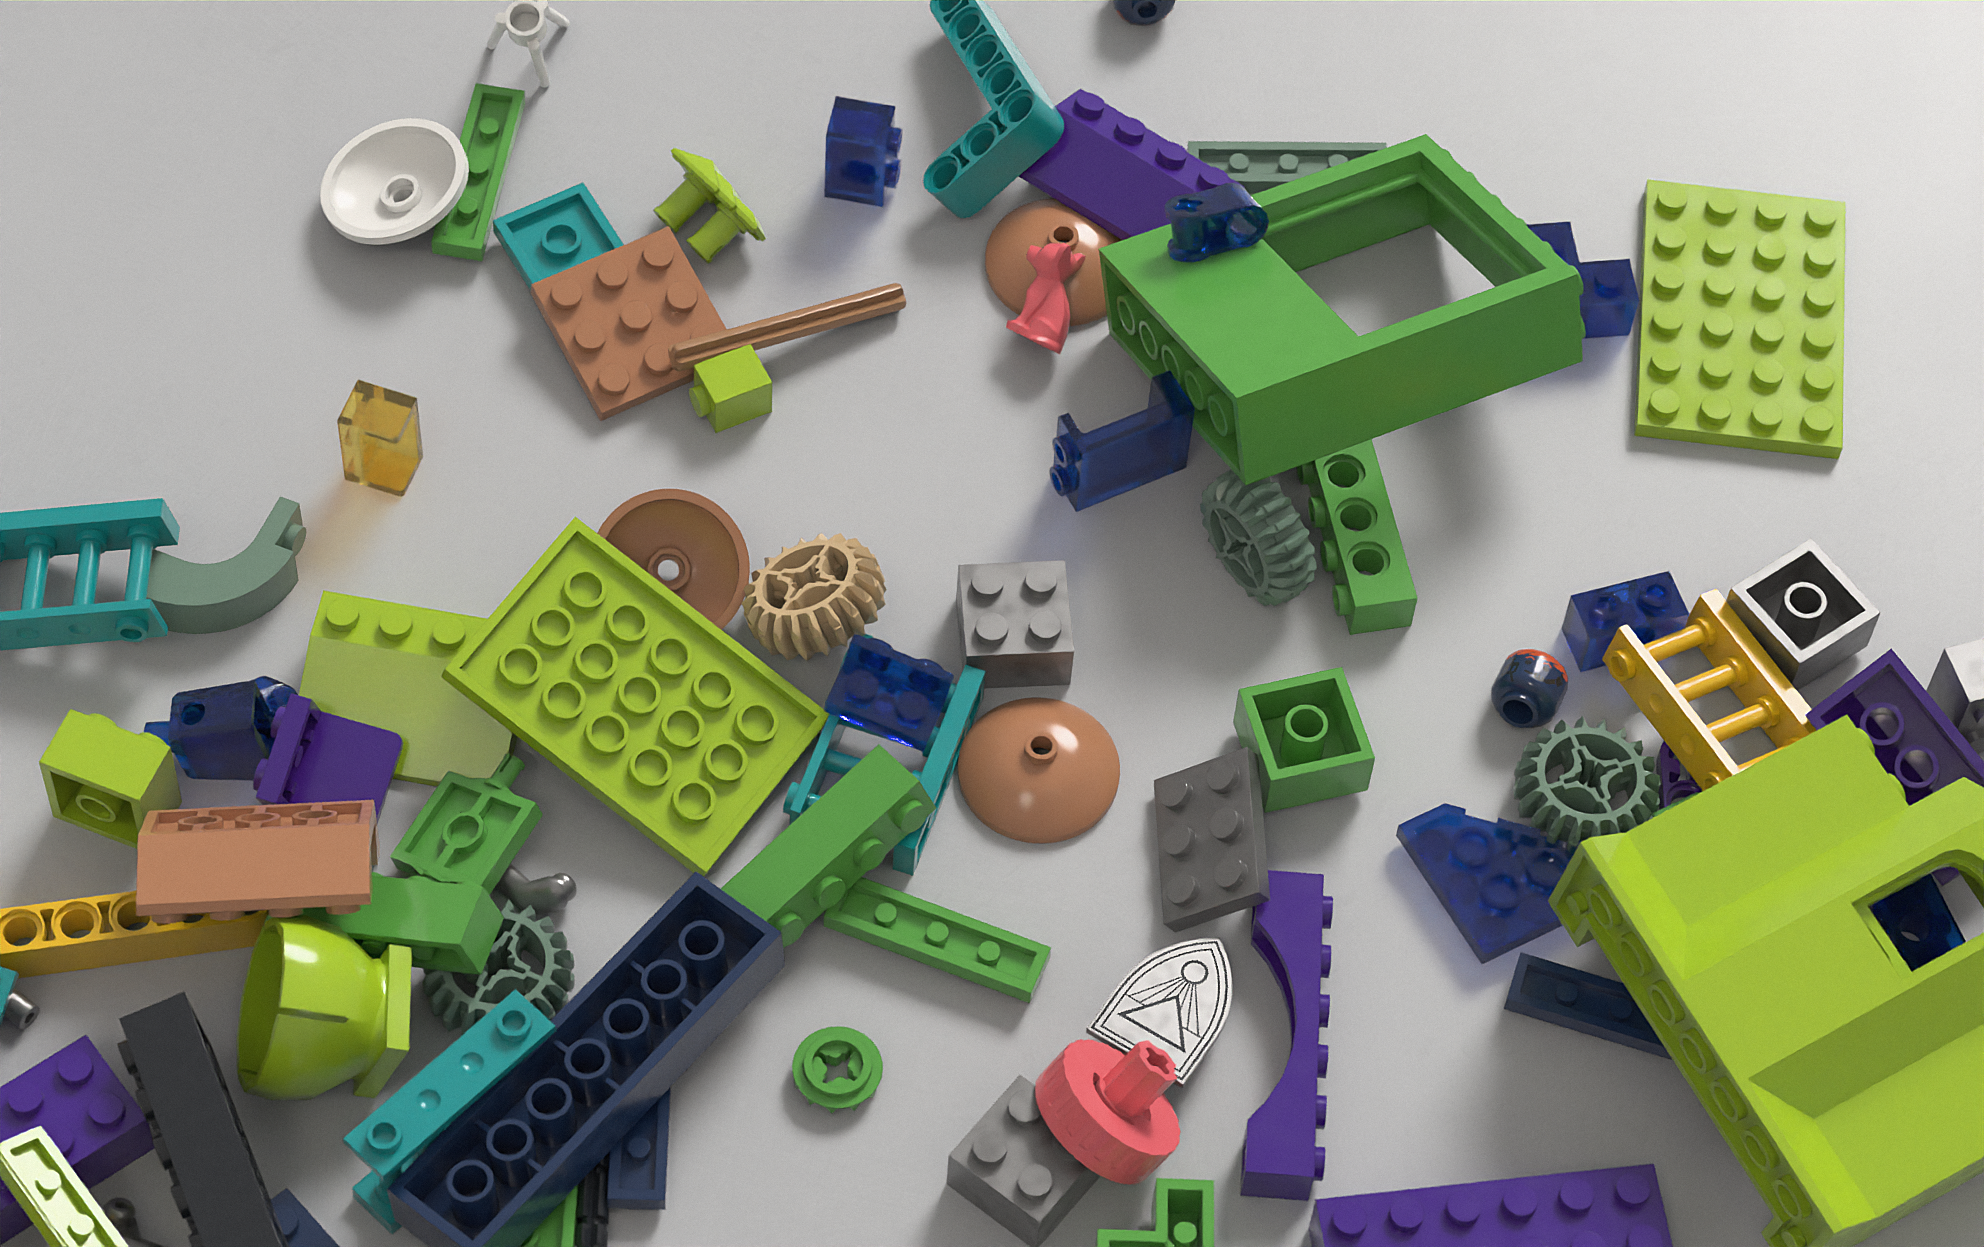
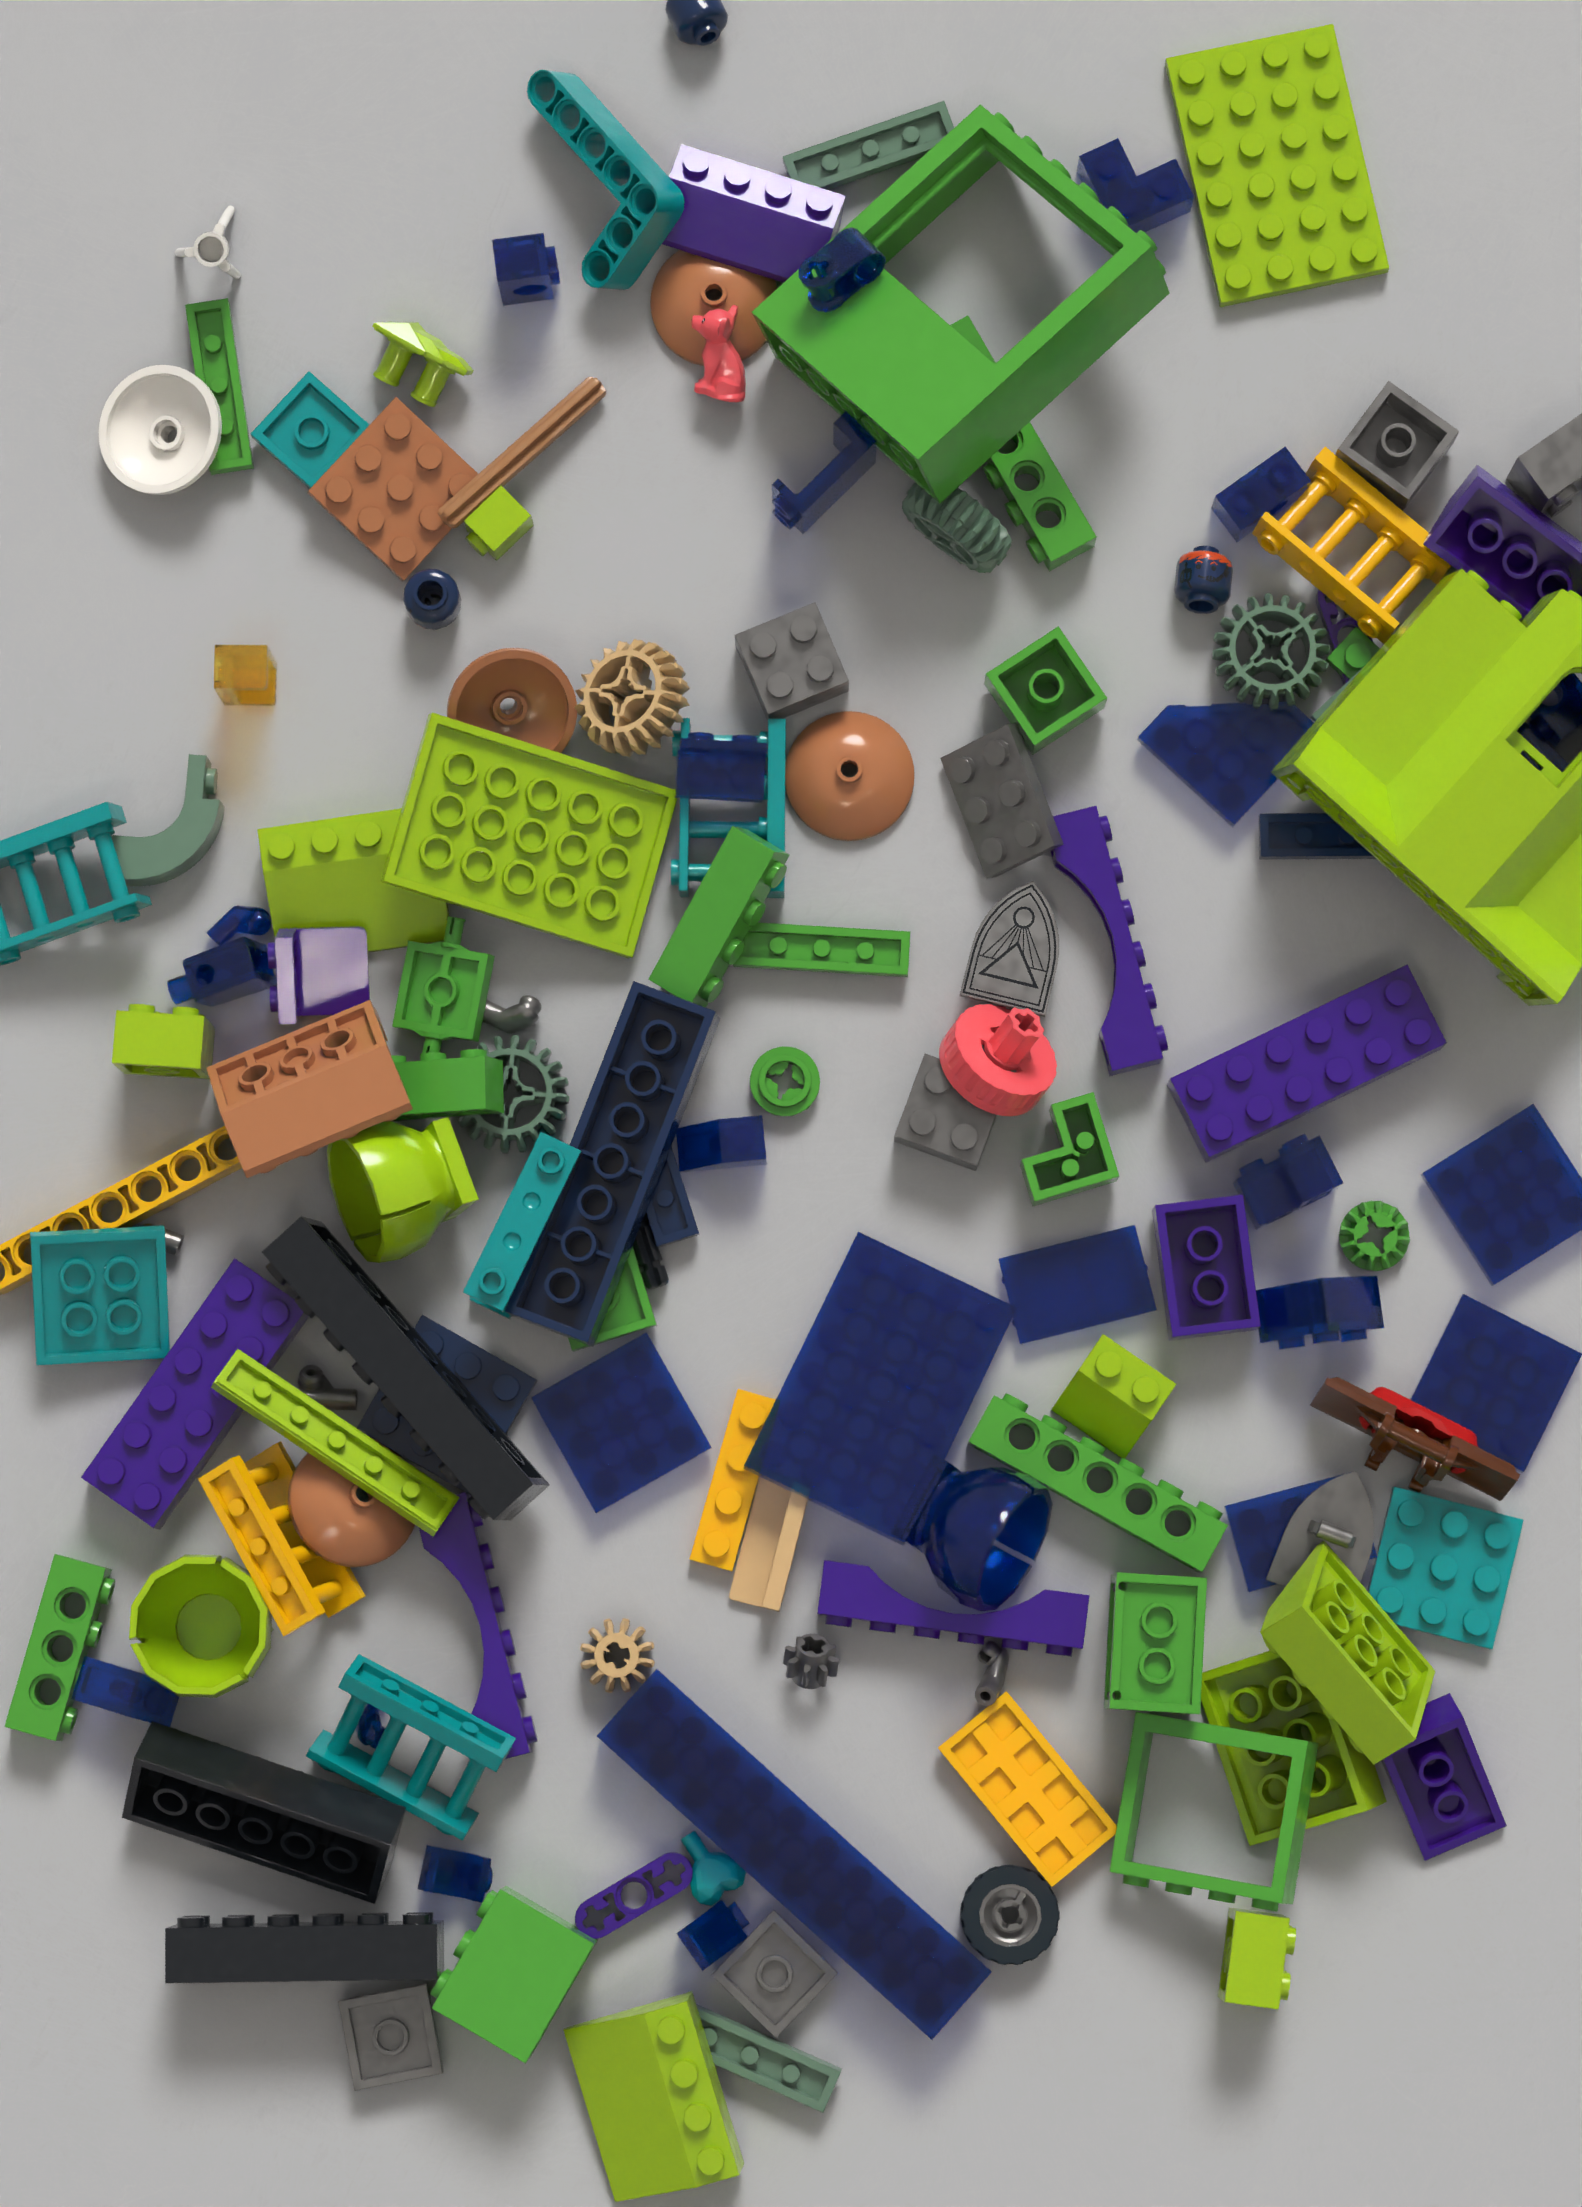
camera: 10 degrees left, 25 degrees up
(625, 434) = (423, 588): none -> dark blue head
(736, 1111) = (721, 1144): none -> clear blue slope

